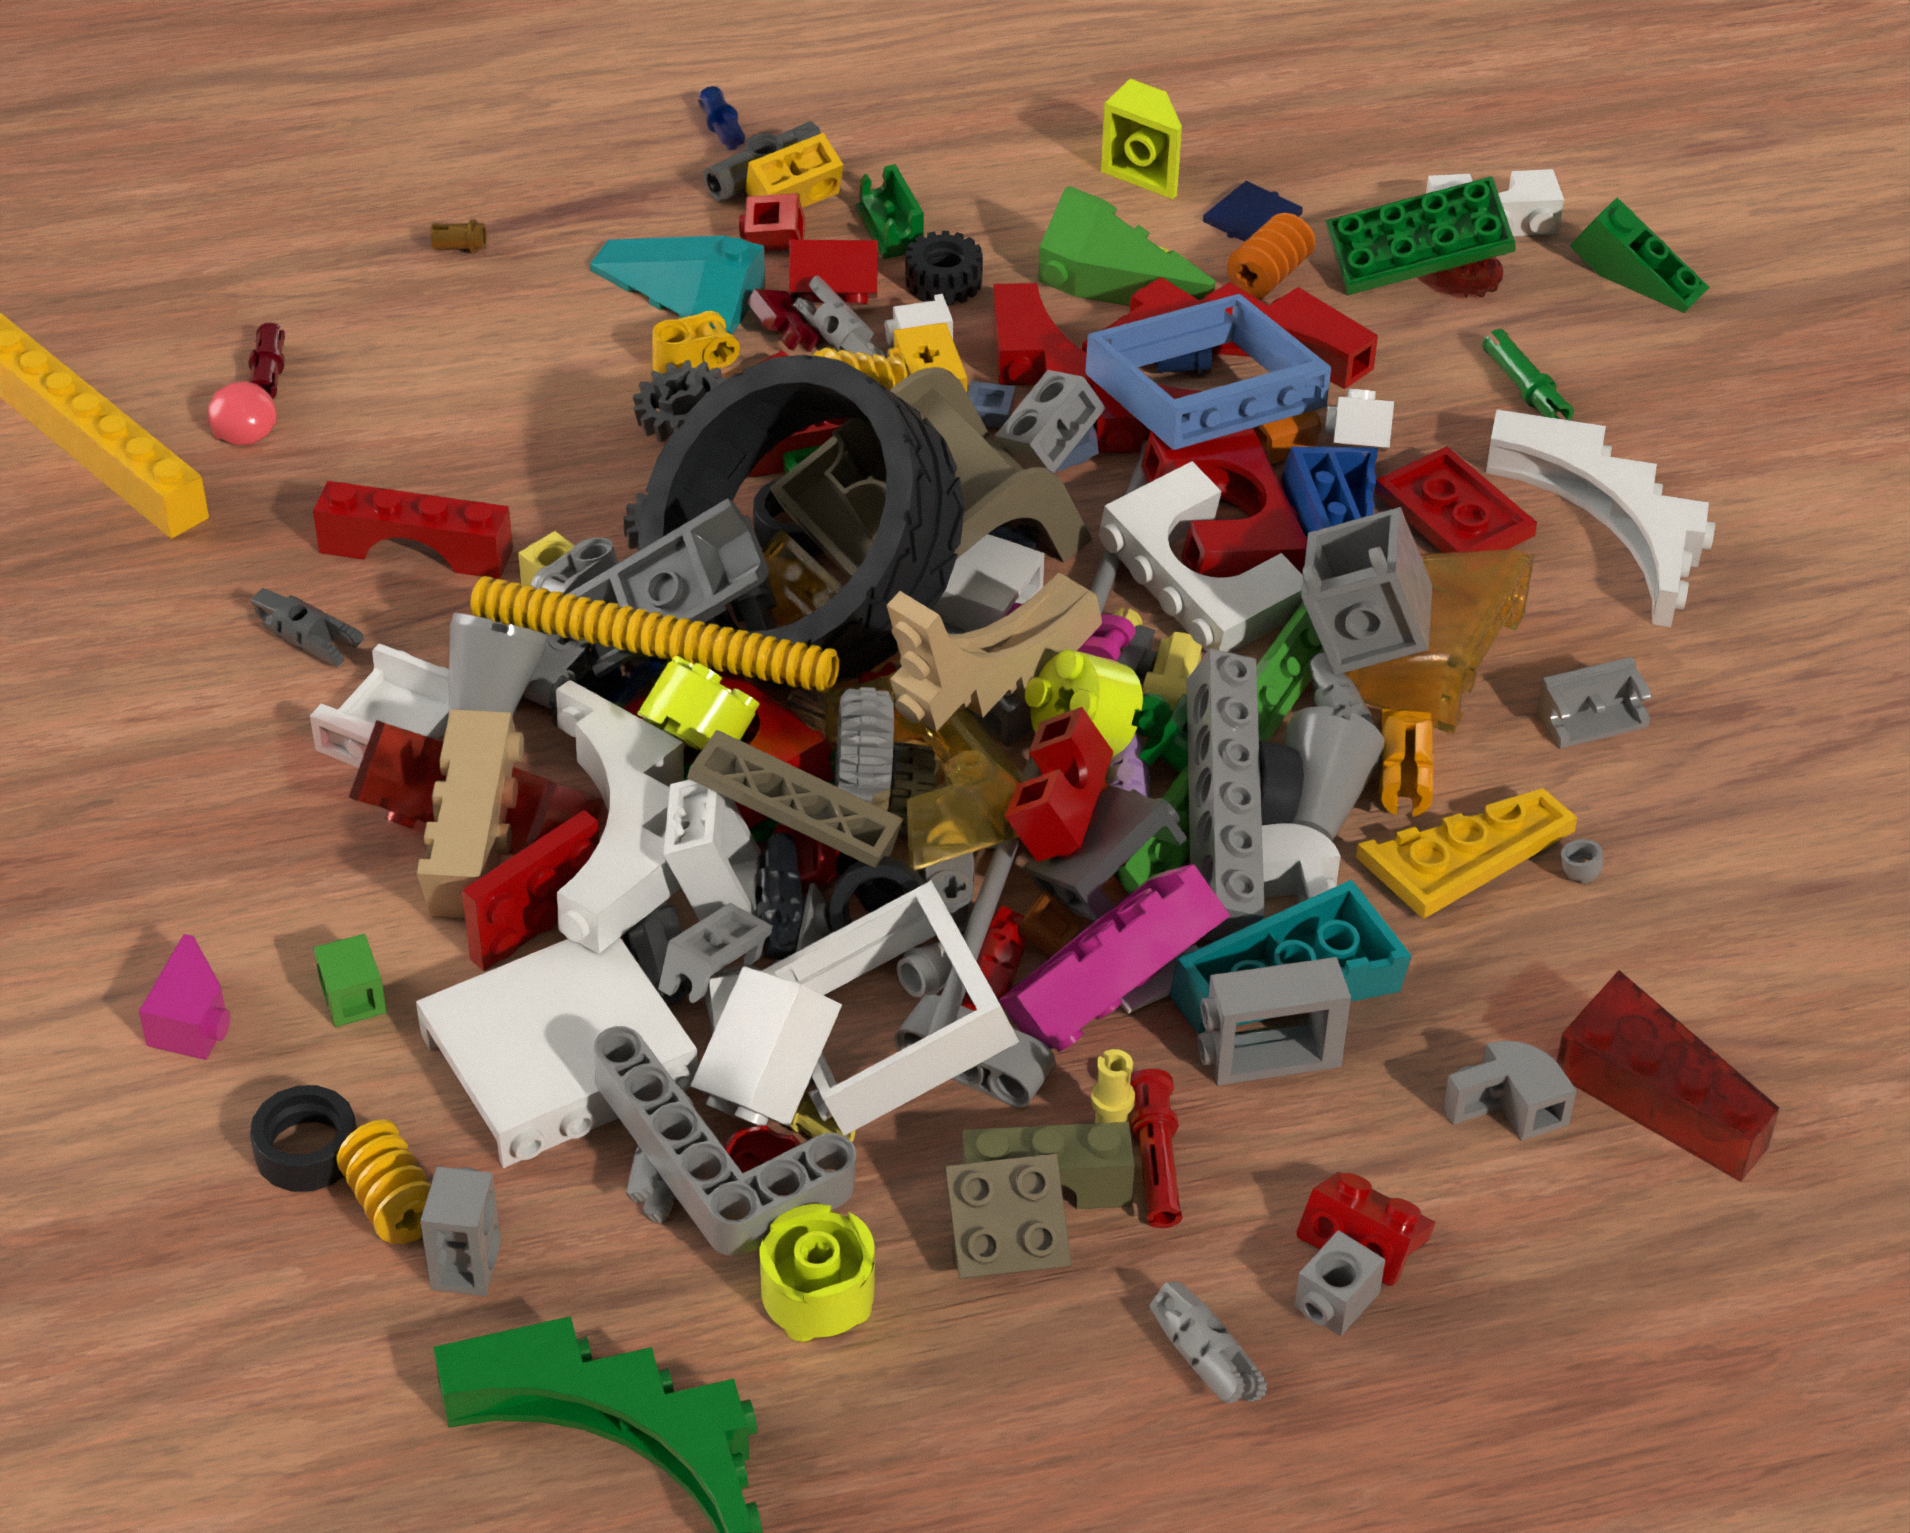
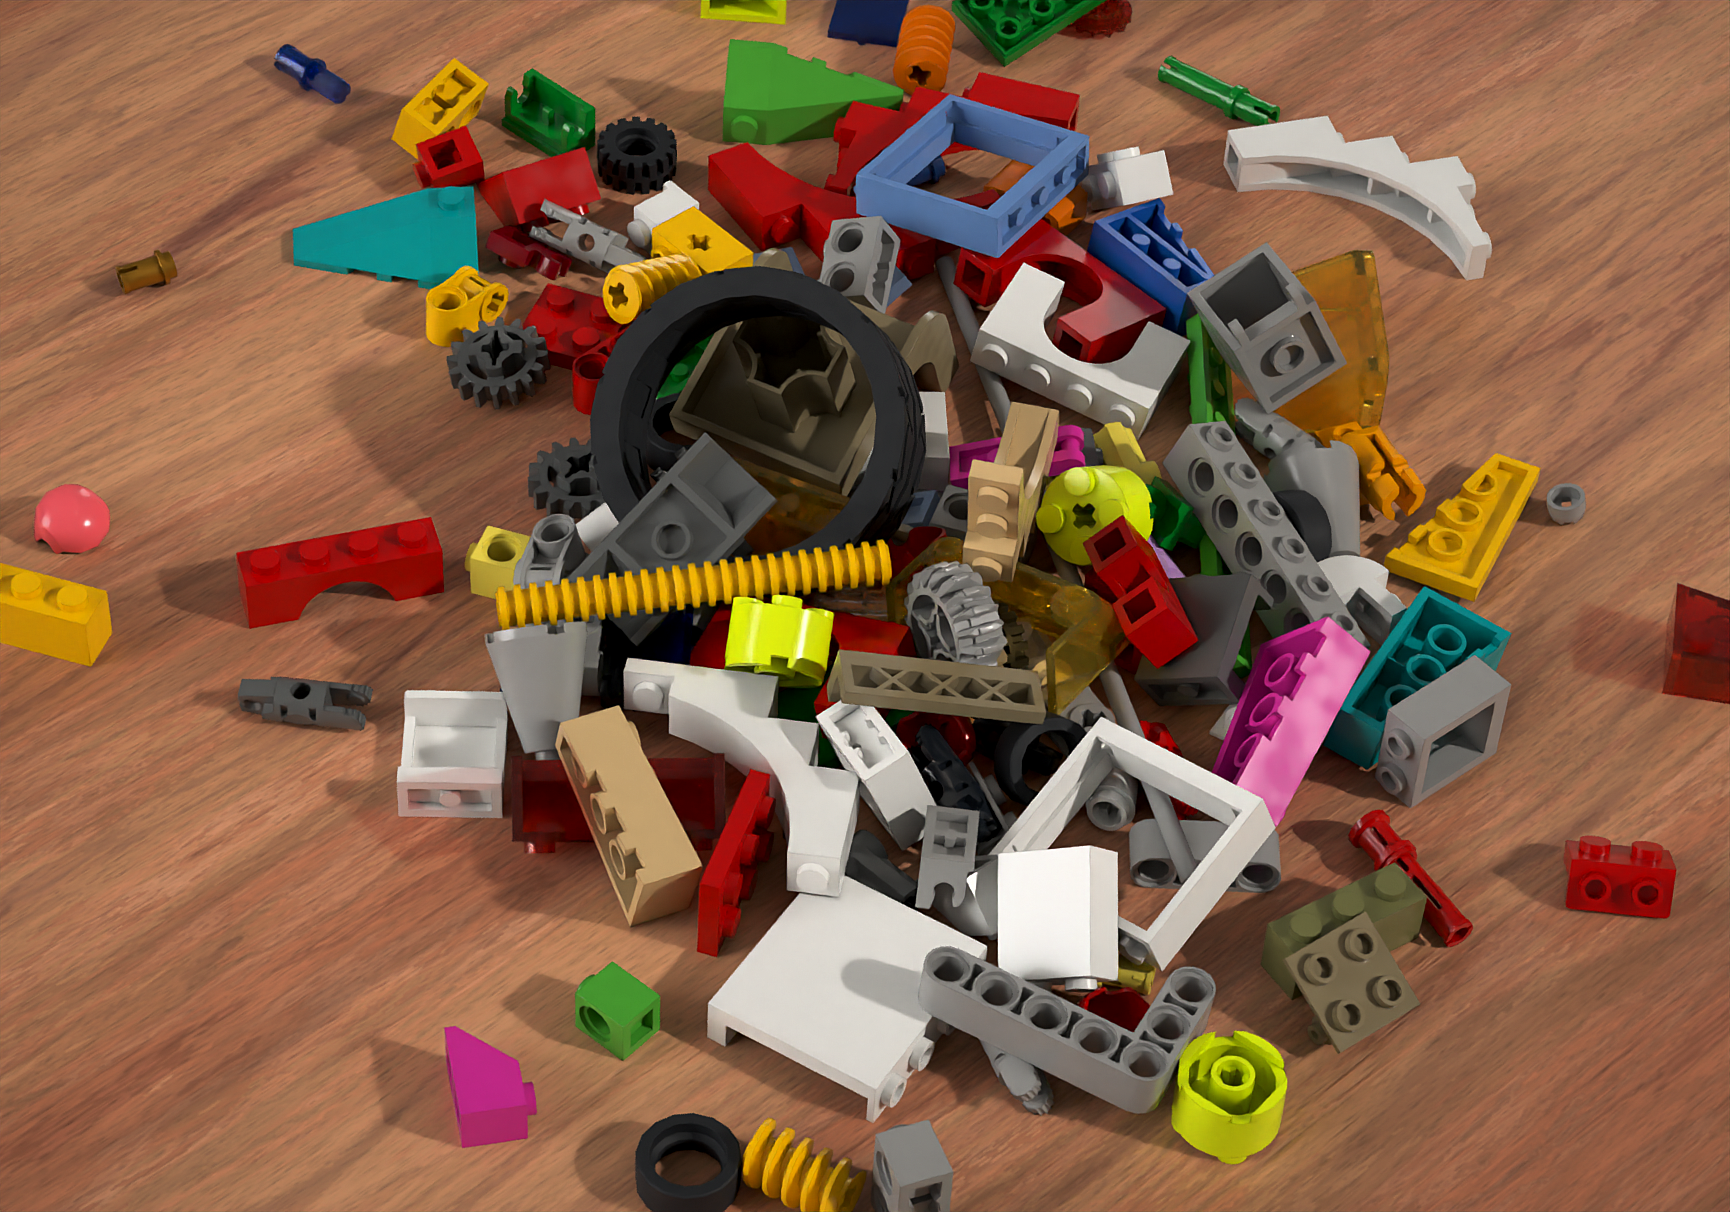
camera: 30 degrees left, 0 degrees up
(267, 358) = (51, 457): dark red pin -> none
(730, 175) = (389, 94): dark grey piece -> none
(1049, 924) = (1186, 723): dark orange tile -> none
(1112, 1094) = (1362, 843): light yellow pin -> none
(1207, 1345) = (1570, 1023): light grey hinge -> none
(1356, 1279) = (1637, 930): light grey brick -> none
(1455, 505) = (1232, 224): red plate -> none
(1519, 1082) = (1653, 709): light grey brick -> none
(1594, 702) = (1479, 365): light grey hinge -> none

